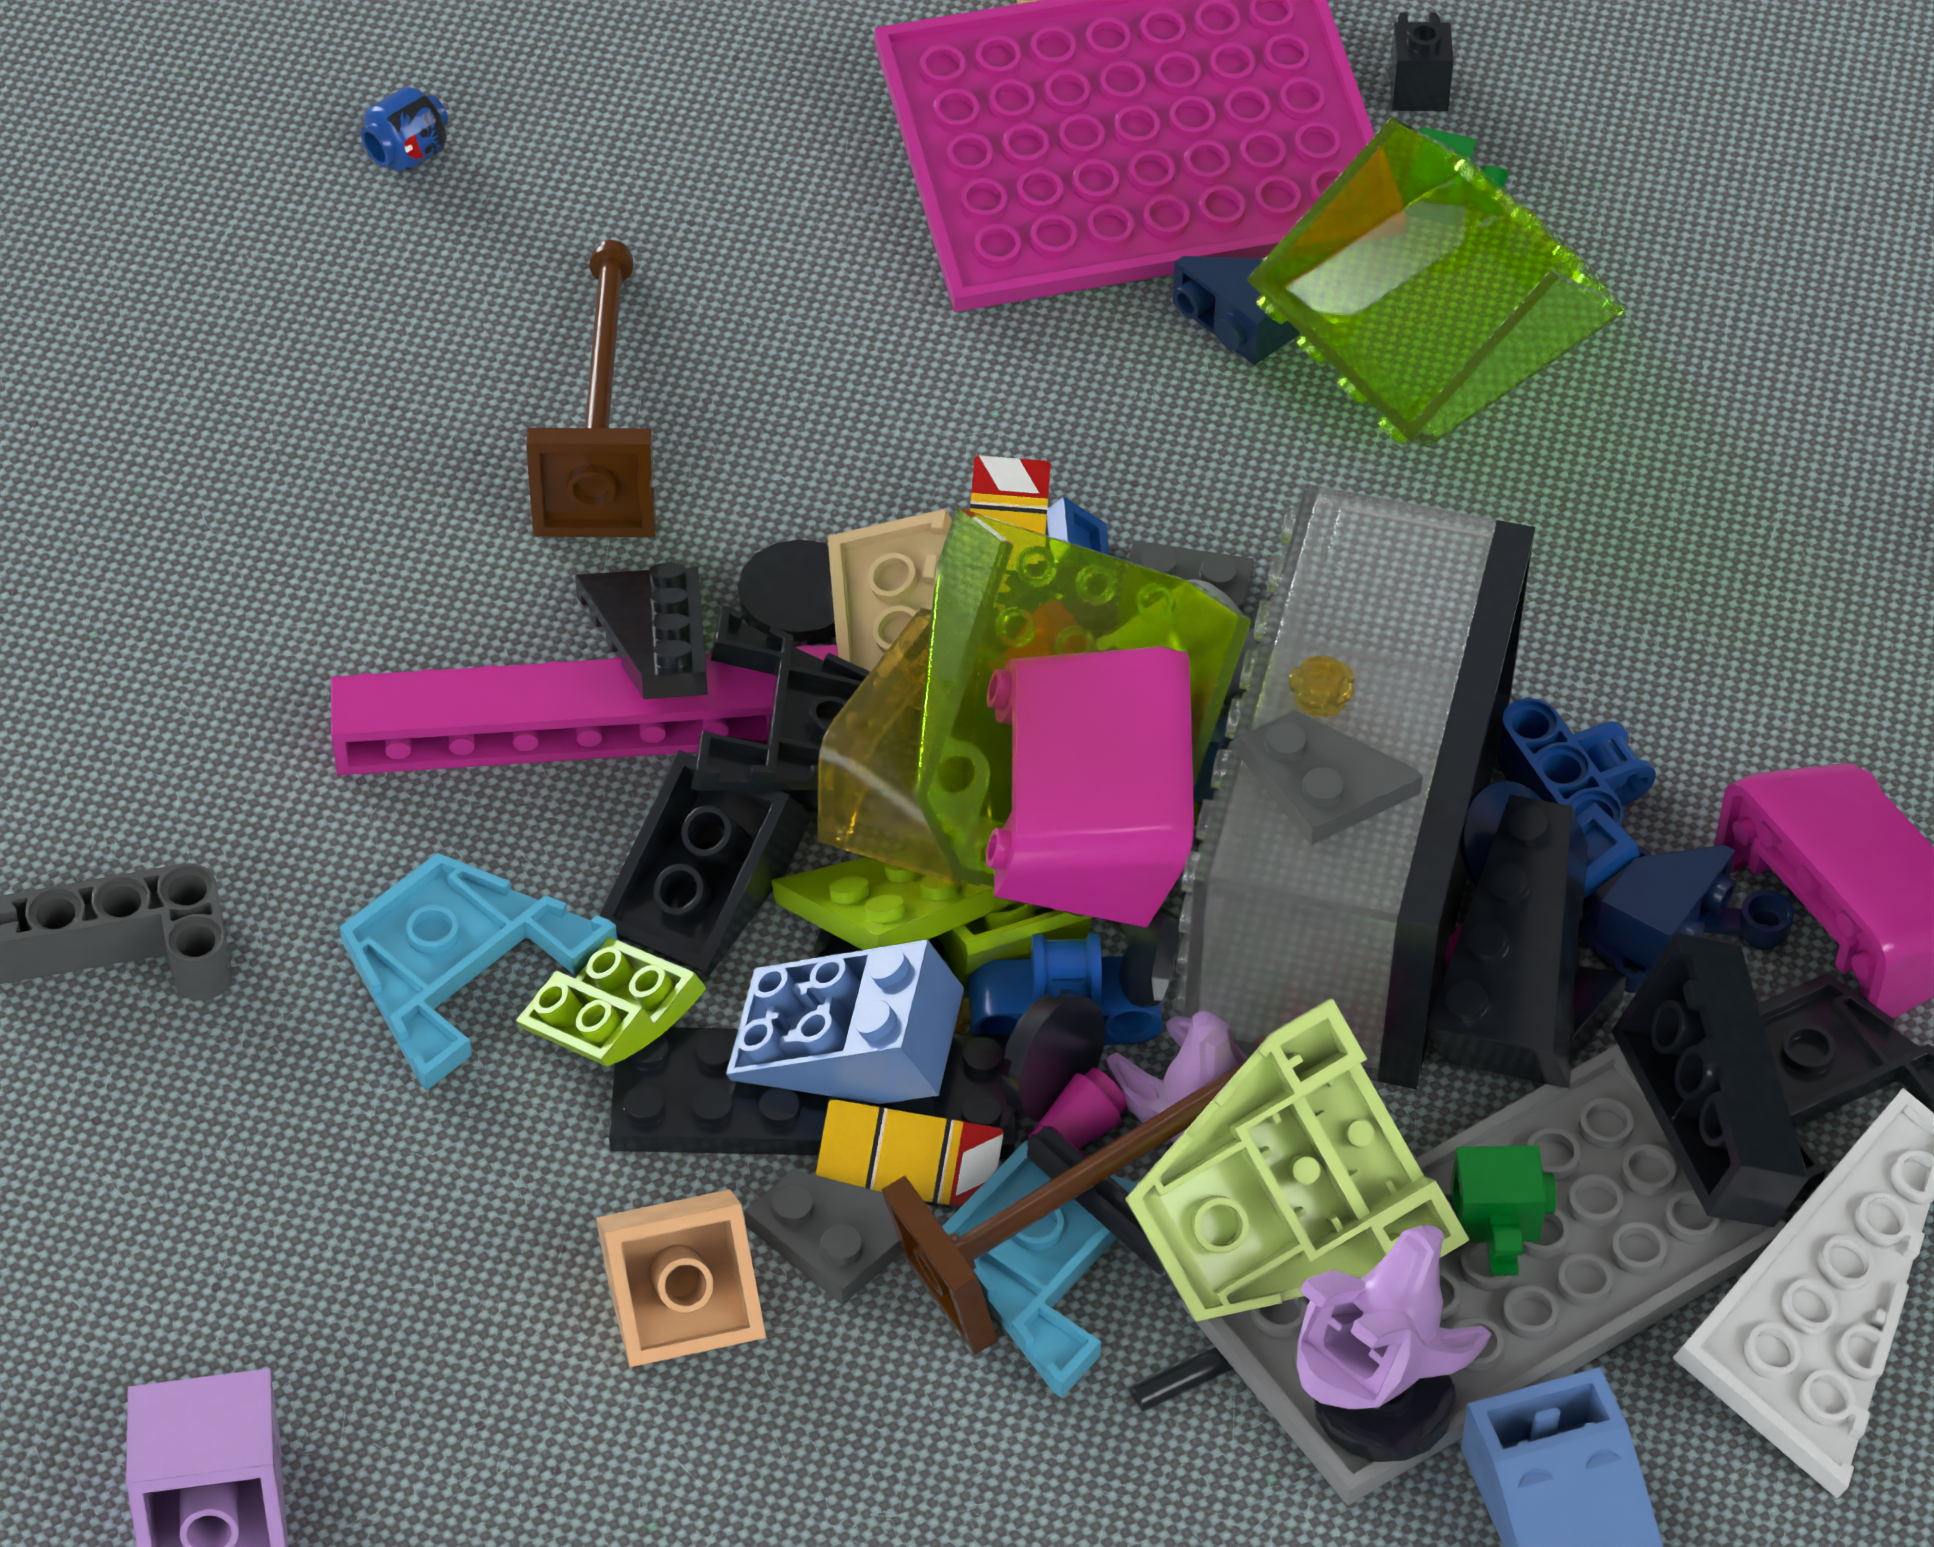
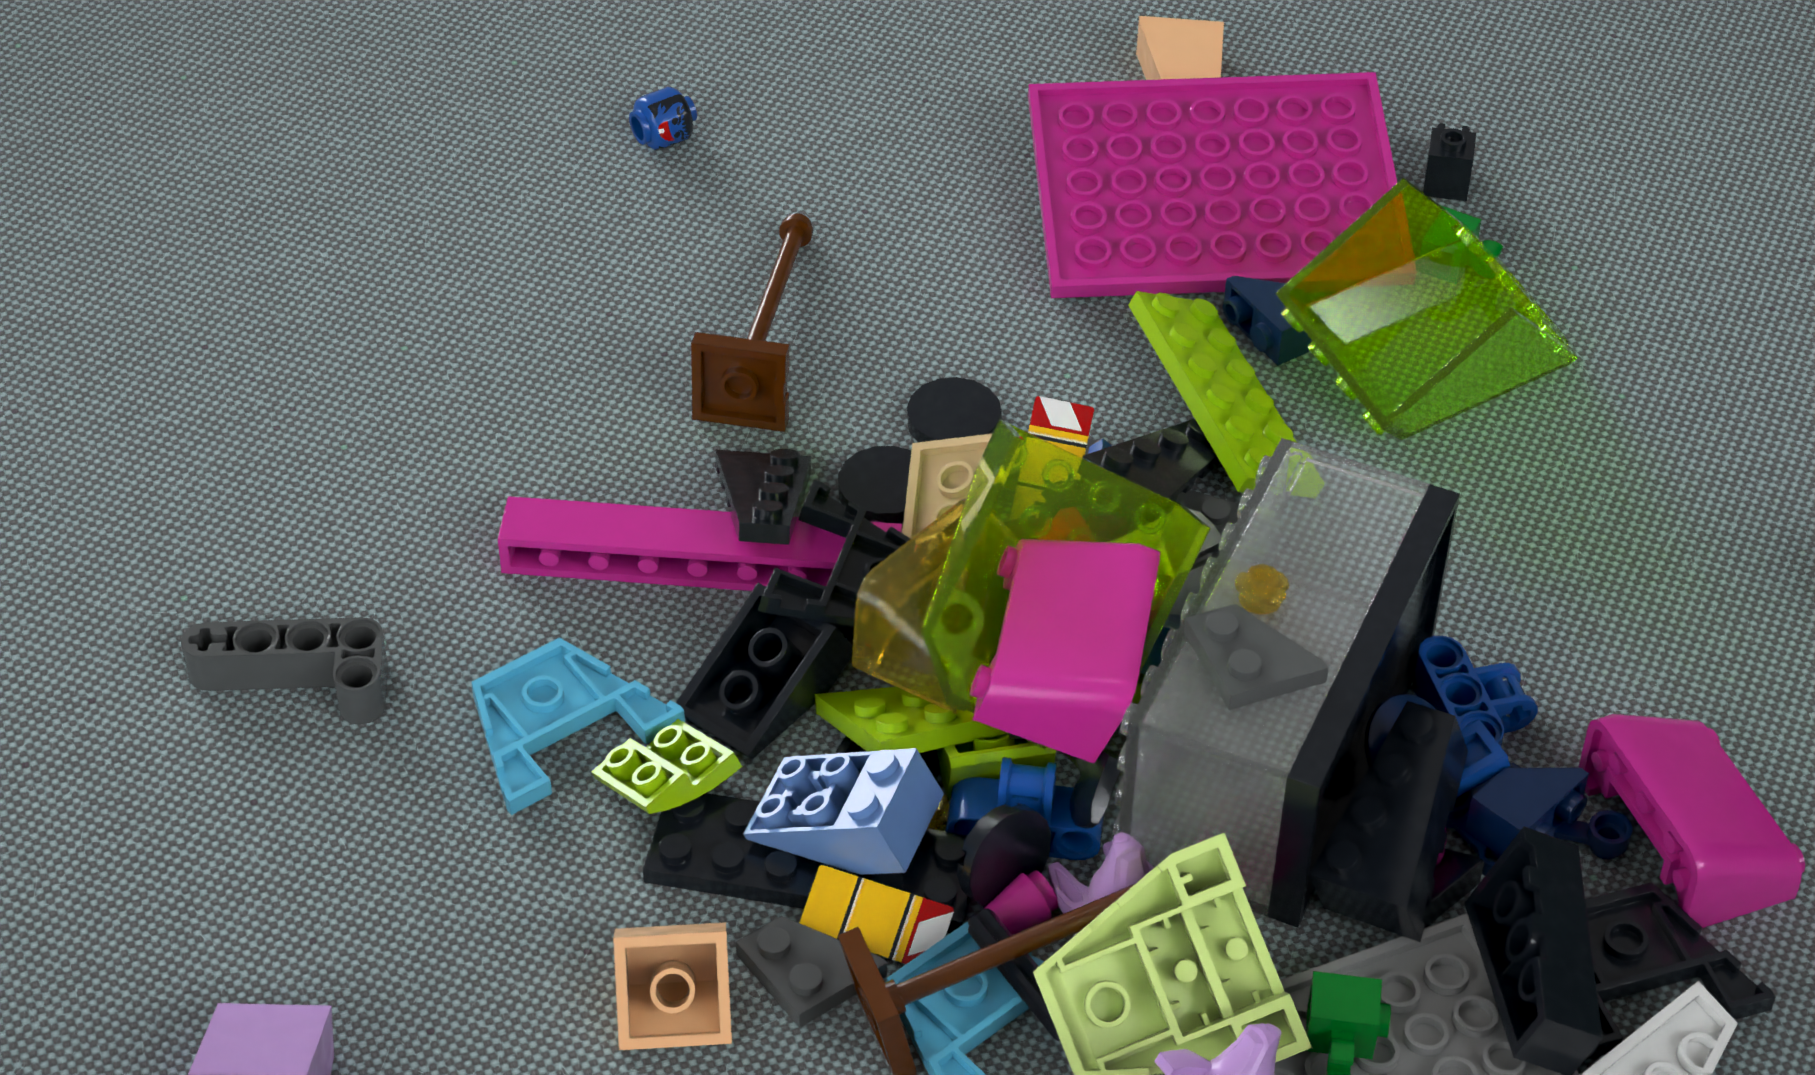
camera: 10 degrees right, 5 degrees down
(864, 484) = (952, 410): none -> black tile
(1145, 514) = (1161, 460): none -> black wing
(1191, 409) = (1213, 381): none -> lime plate

